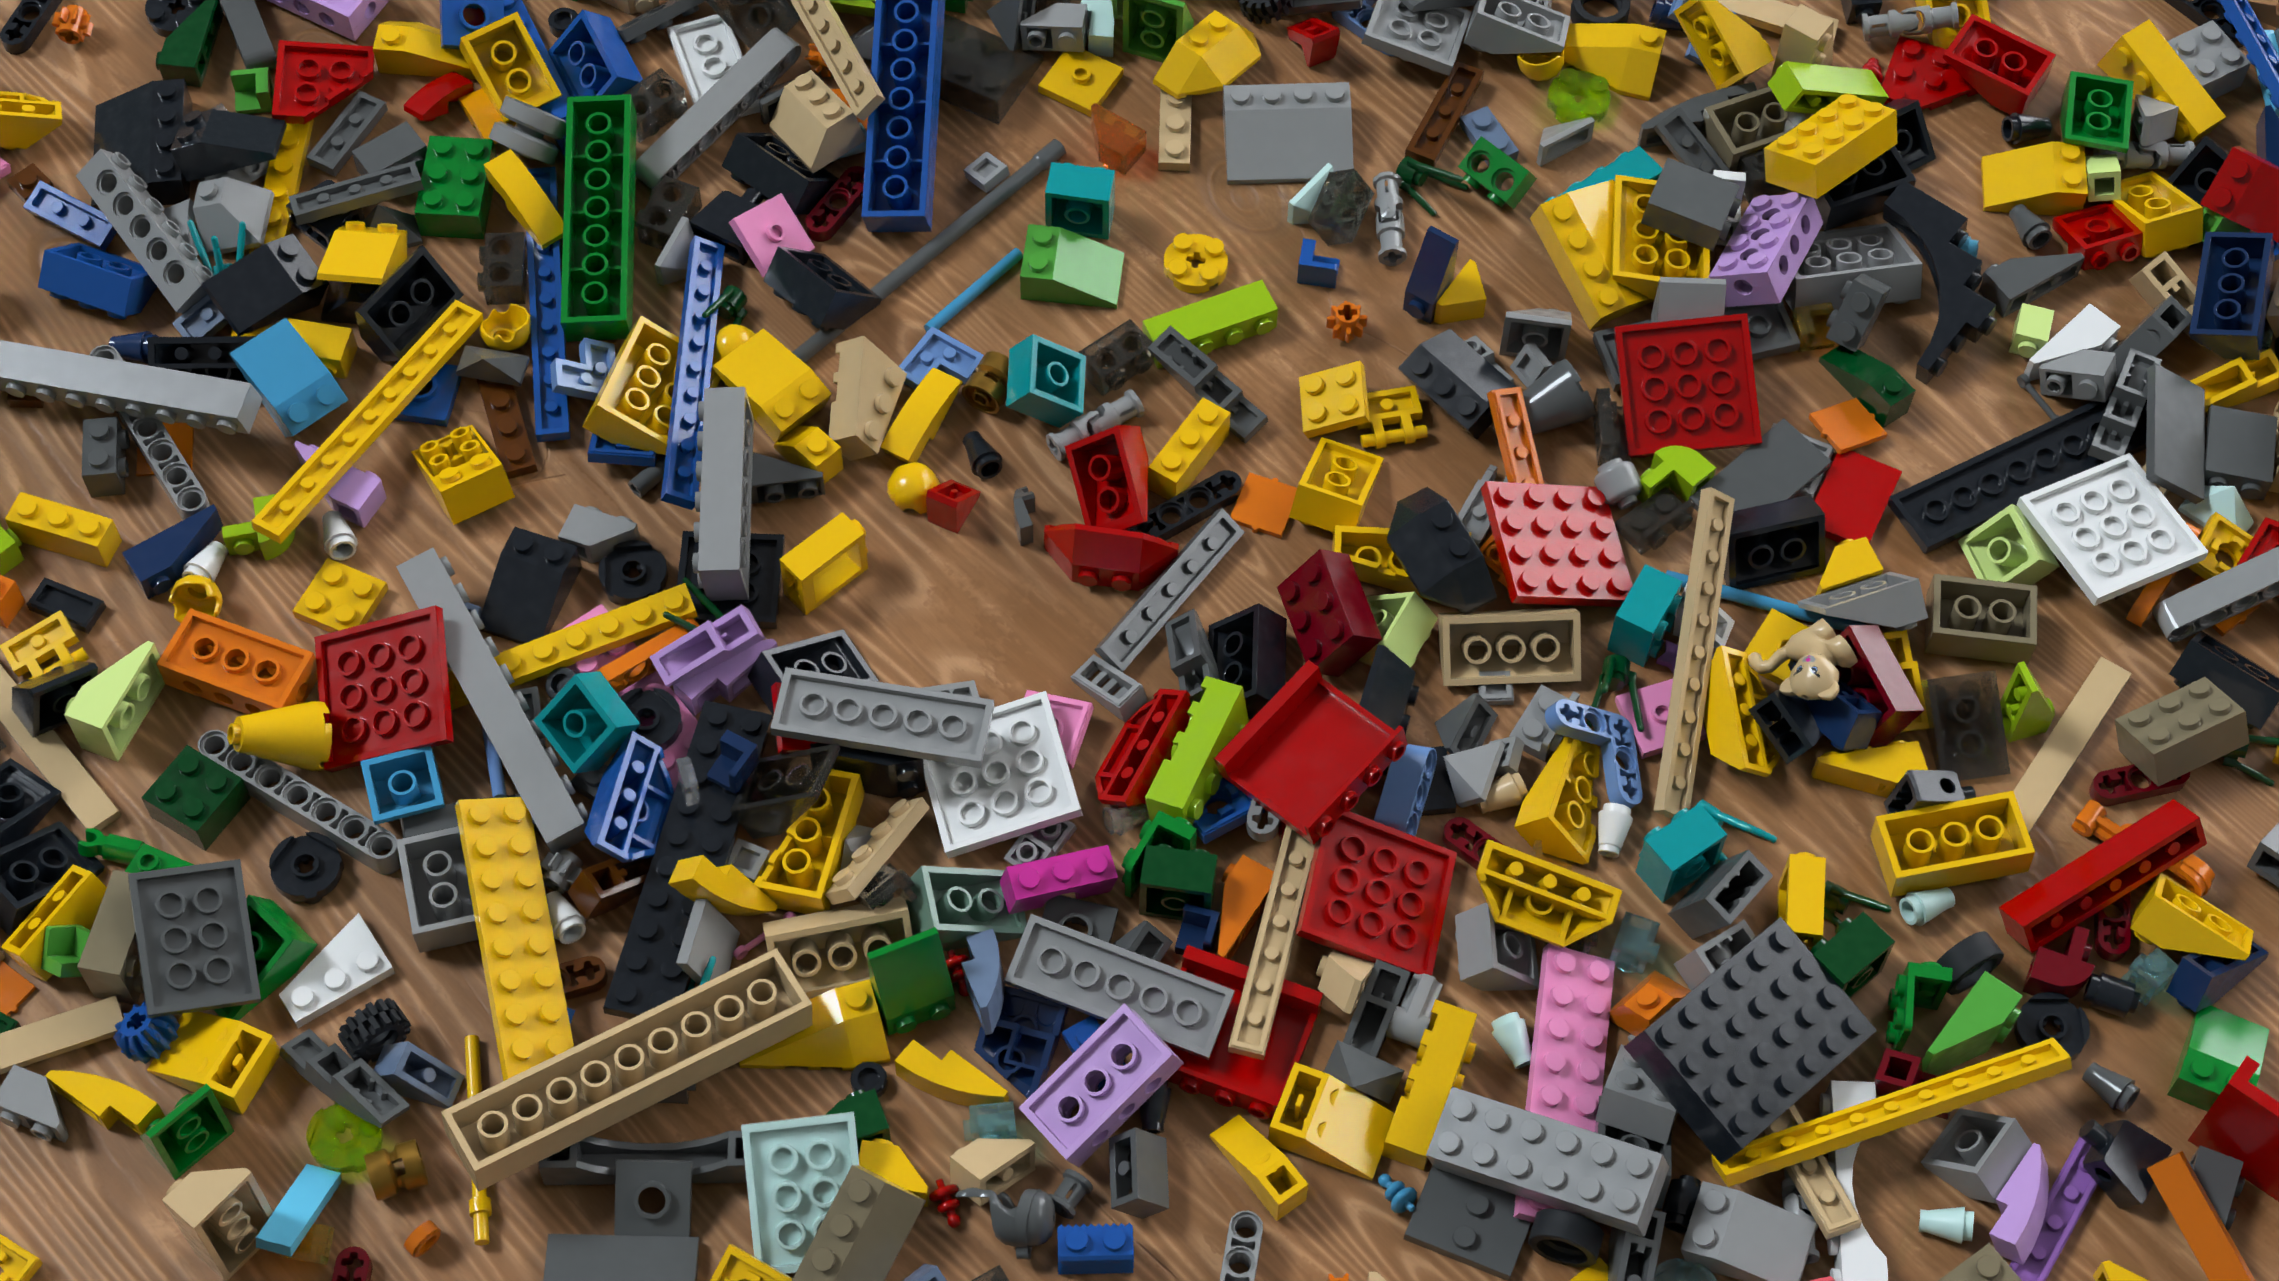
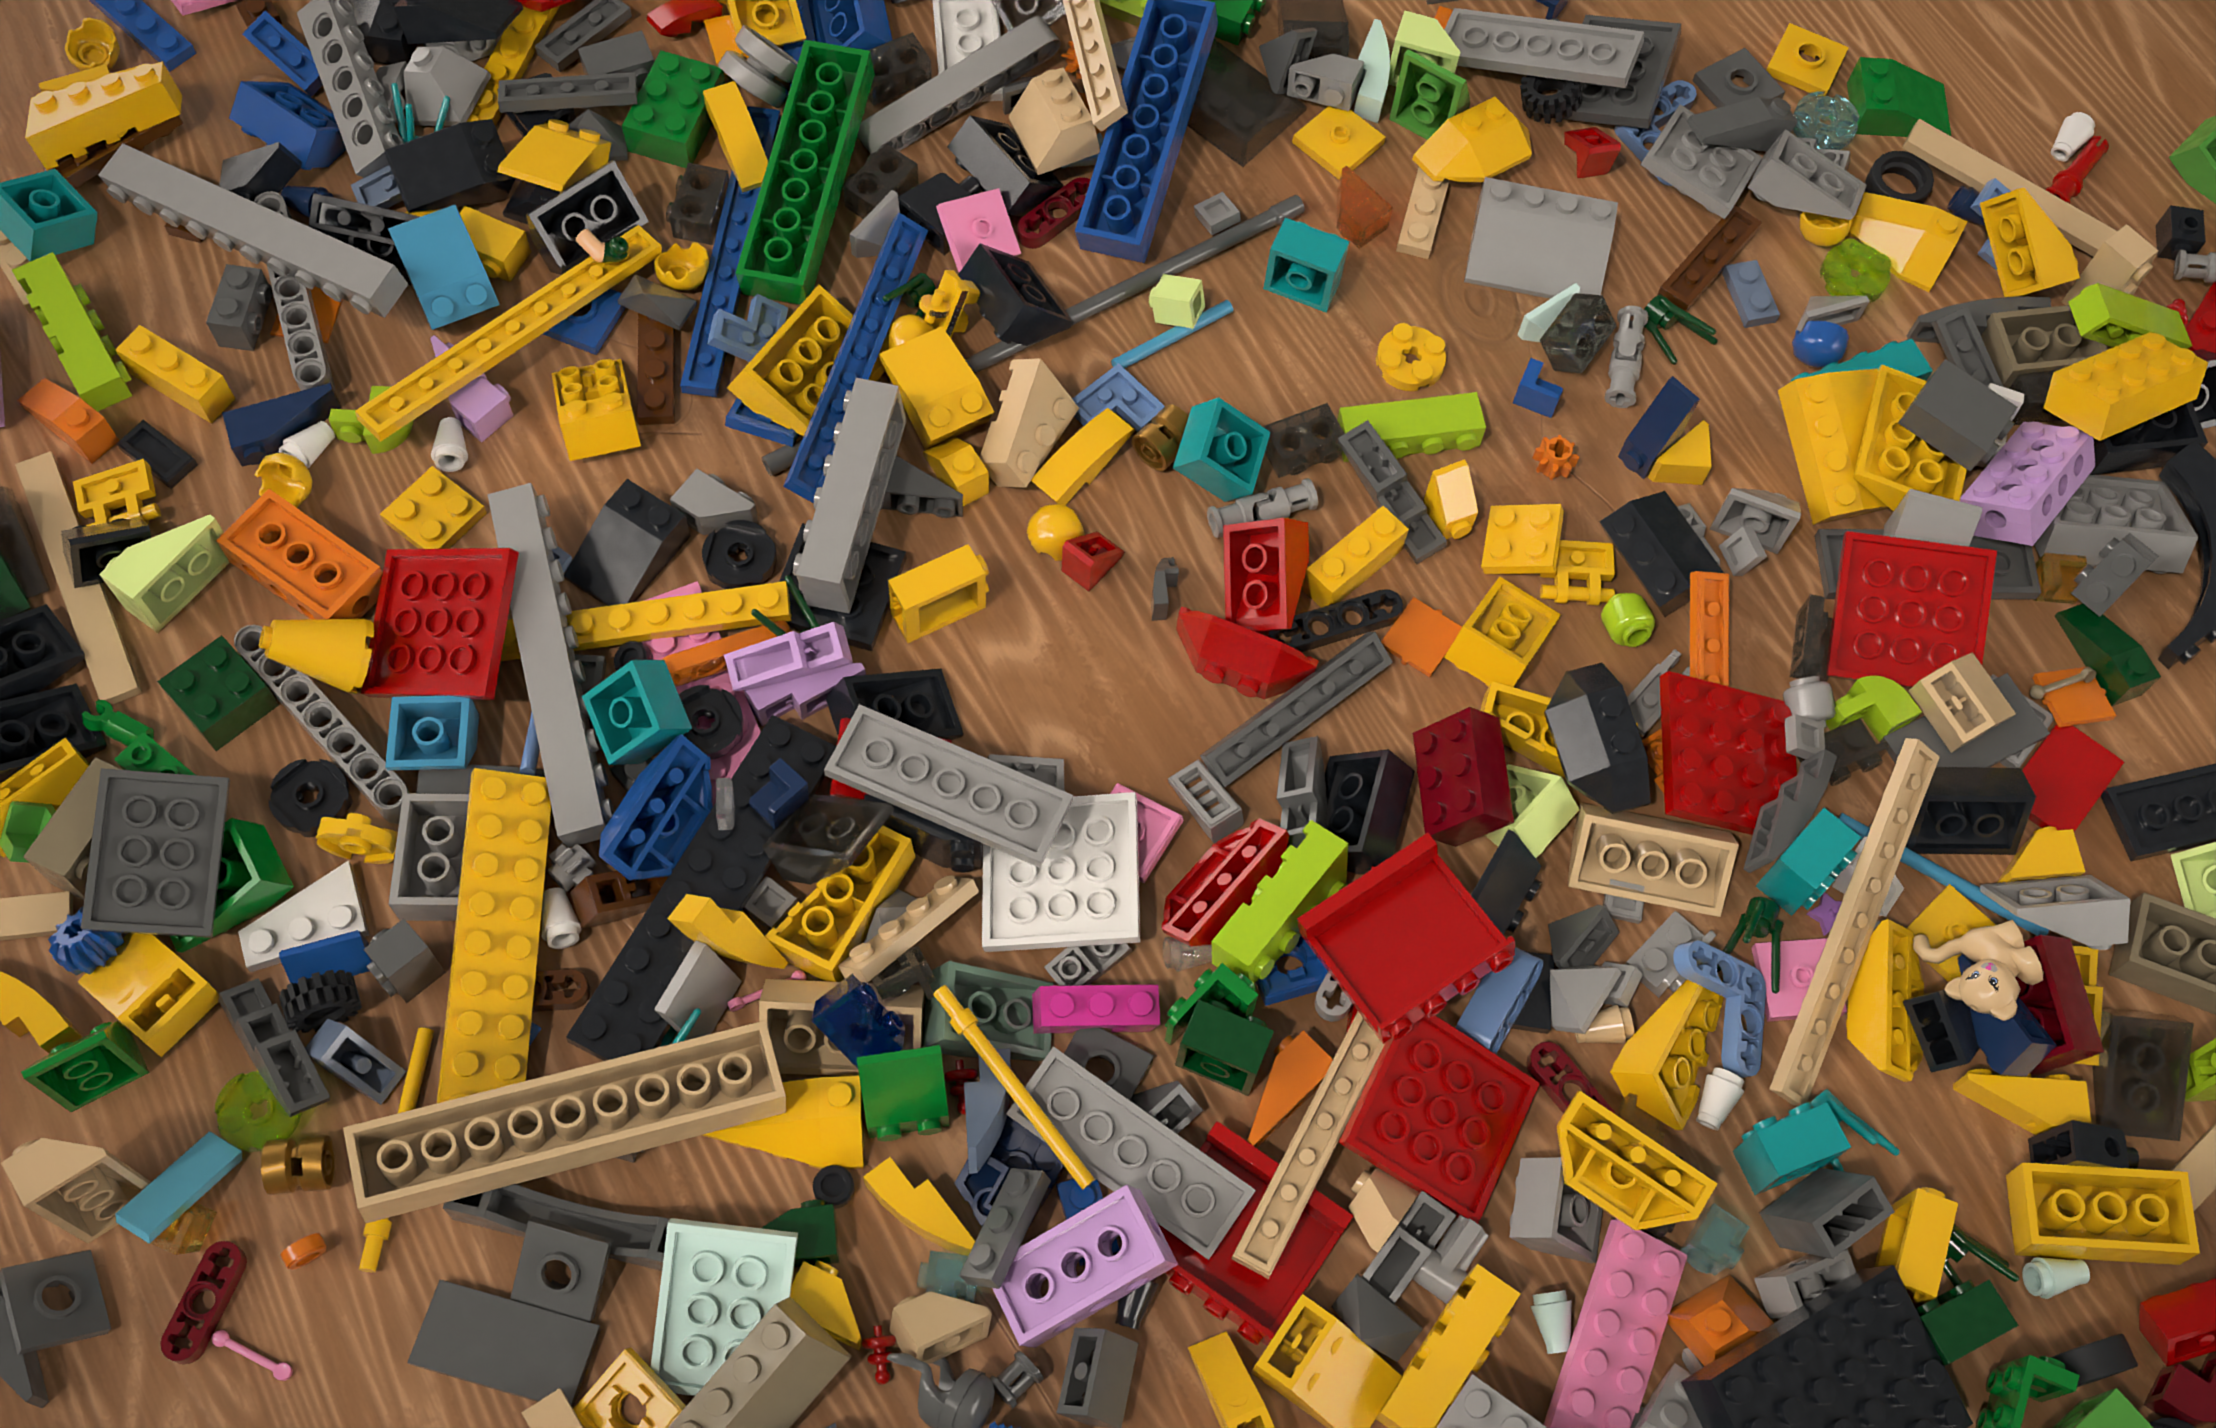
camera: 10 degrees right, 5 degrees up
(84, 328) = (259, 171): none -> black slope
(364, 889) = (358, 837): none -> yellow plate
(376, 986) = (332, 953): none -> blue slope
(433, 330) = (600, 251): none -> arm
(439, 980) = (402, 961): none -> dark grey brick
(763, 306) = (947, 303): none -> yellow hips
(841, 920) = (858, 1021): none -> clear blue brick
(950, 912) = (965, 1024): none -> yellow bar
(971, 258) = (1177, 301): none -> yellowish green brick
(982, 456) = (1135, 517): black cone -> none
(1028, 1070) = (1005, 1228): none -> dark grey plate
(1069, 268) = (1277, 334): bright green slope -> none
(1197, 929) = (1232, 1104): dark blue panel -> none
(1262, 379) = (1452, 500): none -> yellow slope
(1443, 448) = (1628, 619): none -> lime head
(1499, 169) = (1758, 329): green brick -> none
(1557, 399) = (1765, 594): dark grey cone -> none
(1559, 168) = (1820, 343): none -> blue hair
(1618, 575) = (1786, 816): none -> dark grey slope
(1619, 512) = (1803, 736): none -> light grey plate
(1746, 450) = (1961, 701): none -> tan slope
(1854, 404) = (2086, 675): none -> dark tan hinge

